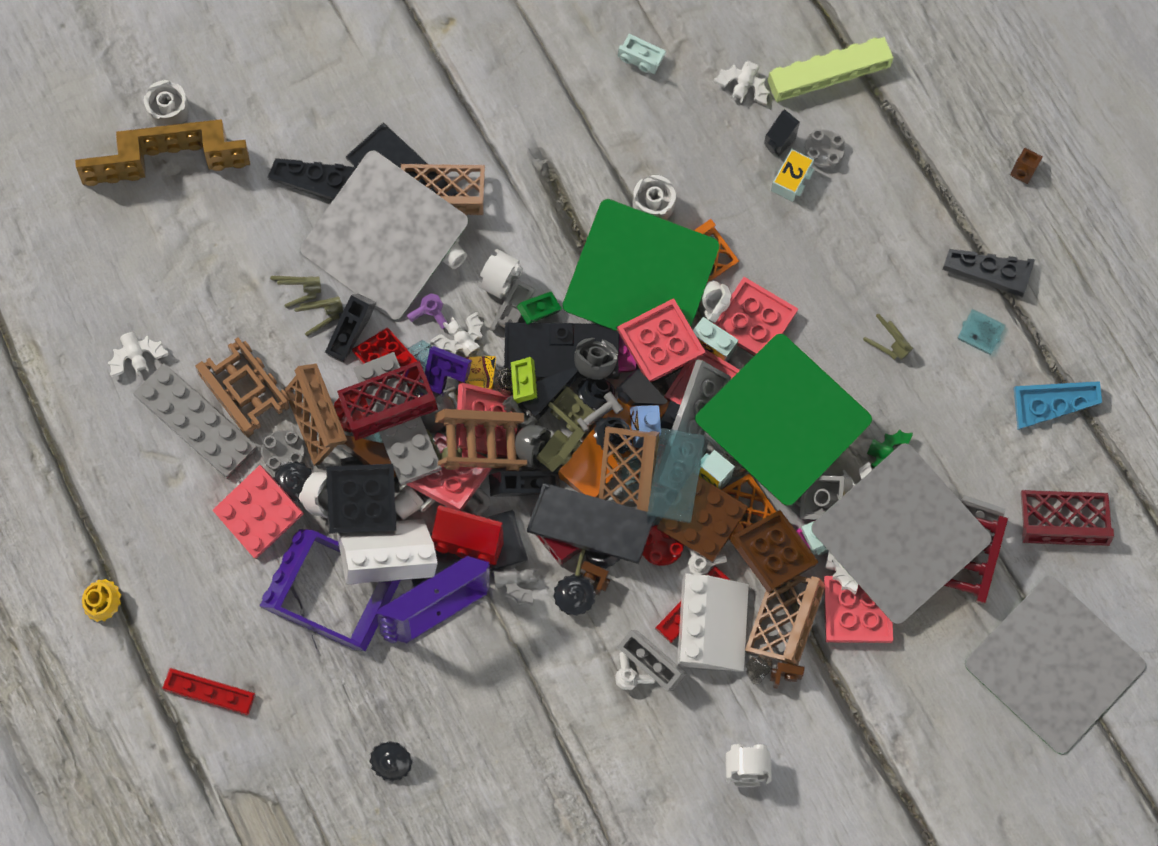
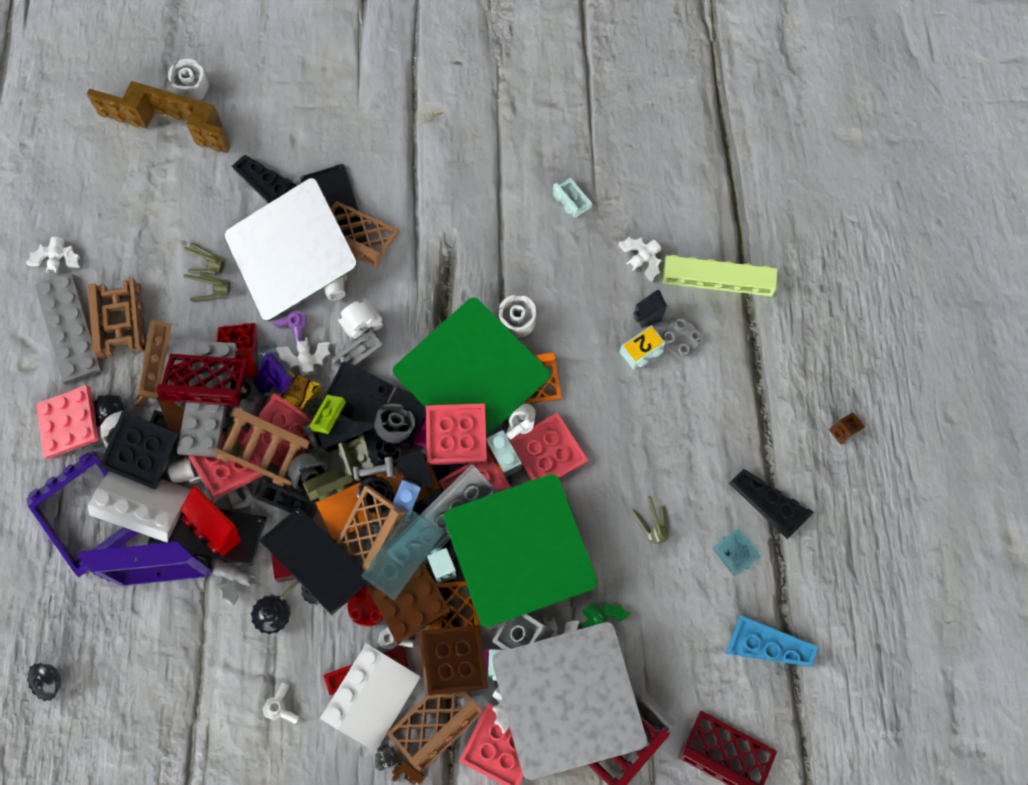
camera: 30 degrees right, 0 degrees up
(281, 448) = (117, 380): light grey dish -> none
(350, 326) = (225, 307): black slope -> none
(539, 307) = (376, 361): green plate -> none
(597, 574) = (297, 603): reddish brown bracket -> none
(651, 660) = (300, 704): light grey brick -> none

